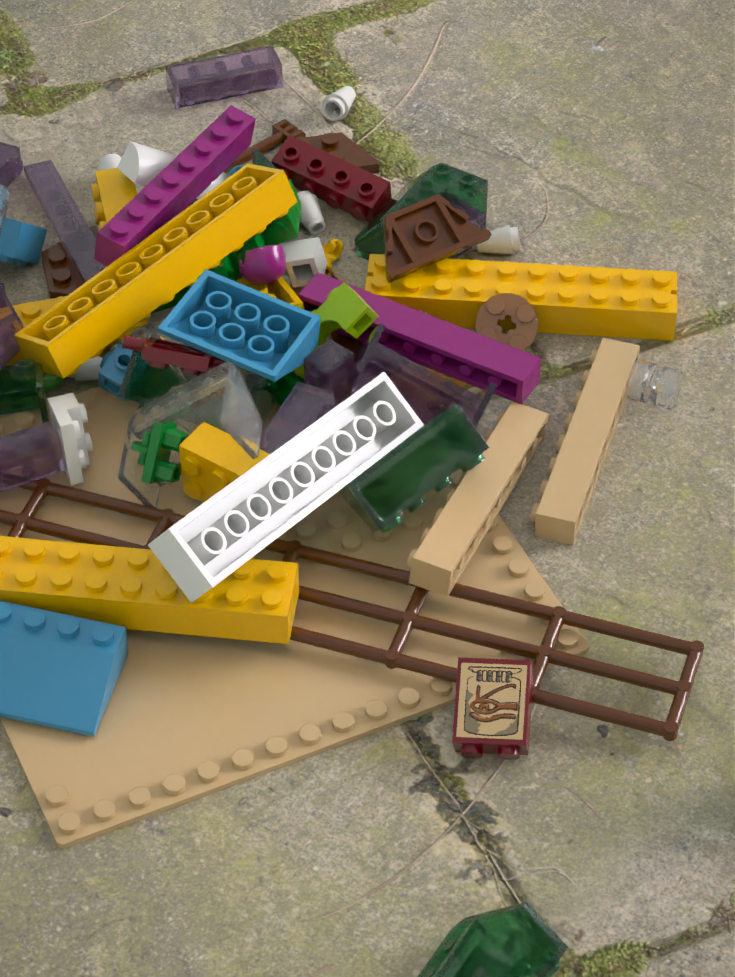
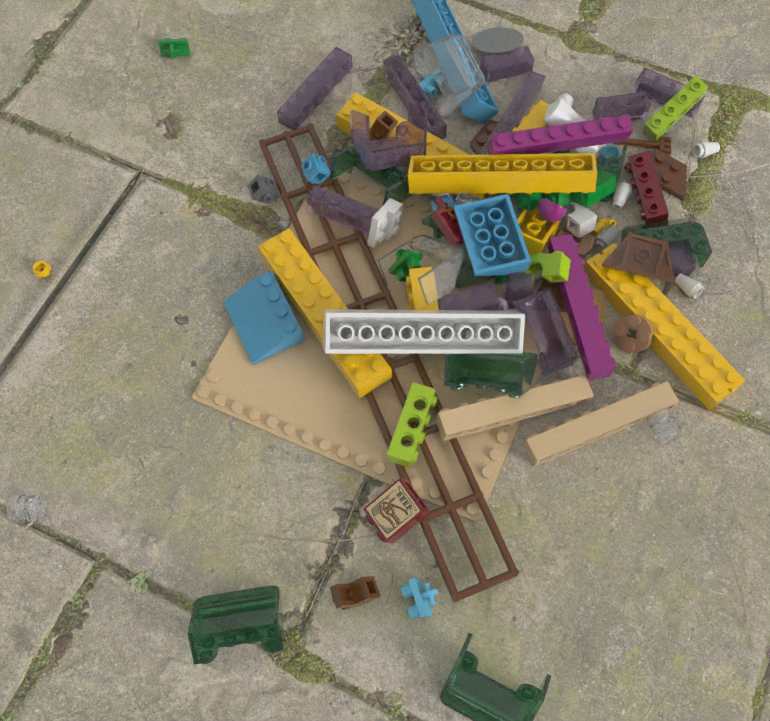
camera: 50 degrees right, 20 degrees up
(190, 120) = (633, 104): none -> clear purple brick
(261, 77) = (675, 108): none -> lime brick
(351, 263) = (606, 237): none -> light grey brick
(393, 607) = (417, 395): none -> lime brick
(559, 834) = (354, 593): none -> reddish brown brick
(637, 765) = (416, 590): none -> medium azure hips

